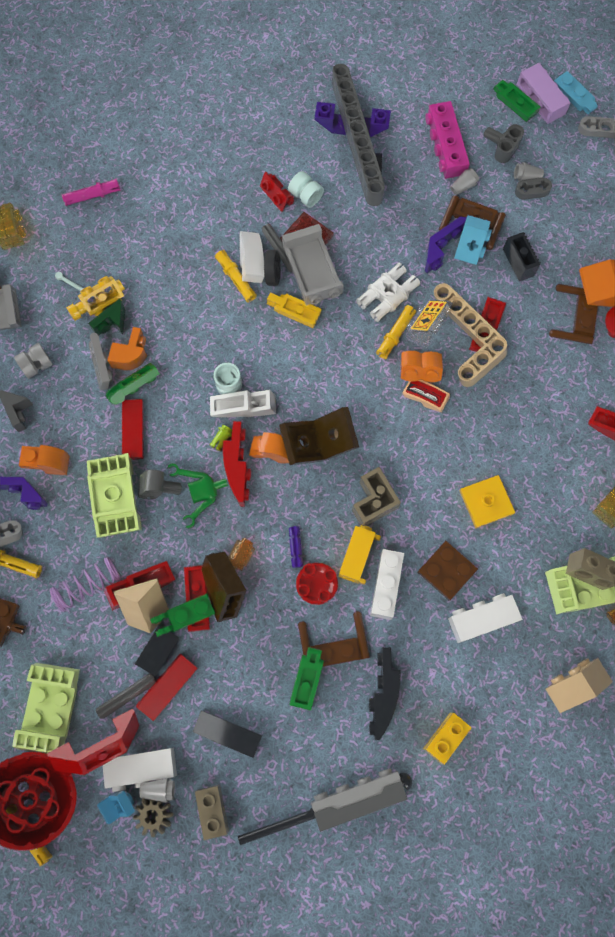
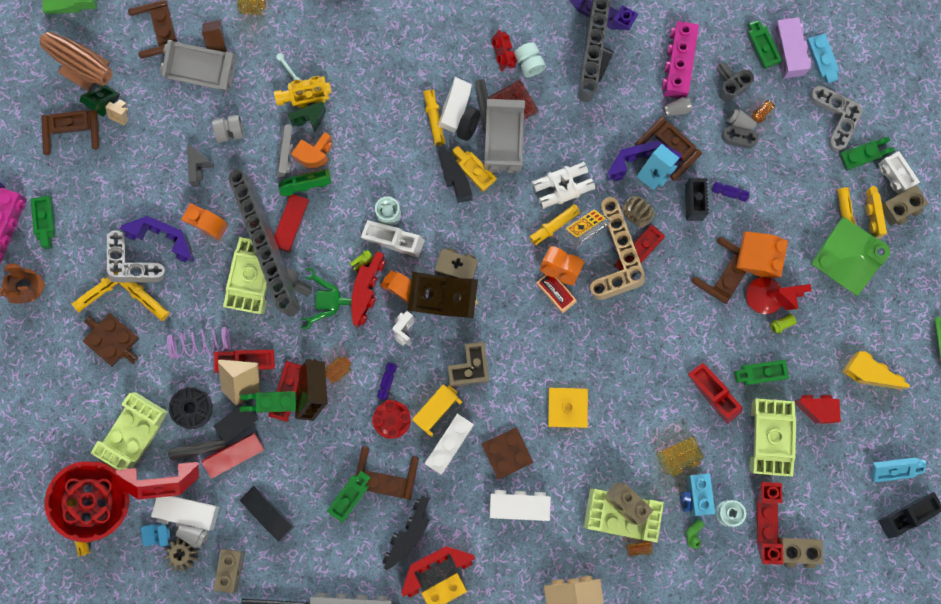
camera: 20 degrees right, 5 degrees up
(90, 650) = (180, 402): none -> black wheel
(116, 456) = (264, 243): none -> dark grey beam
(279, 322) = (455, 176): none -> black slope
(290, 492) = (403, 323): none -> white bracket
(307, 404) = (446, 263): none -> dark tan brick
(409, 743) = (412, 583): none -> red slope
(472, 287) = (638, 211): none -> dark tan gear
(543, 160) = (760, 114): none -> clear orange pin
(548, 239) = (730, 191): none -> dark purple axle

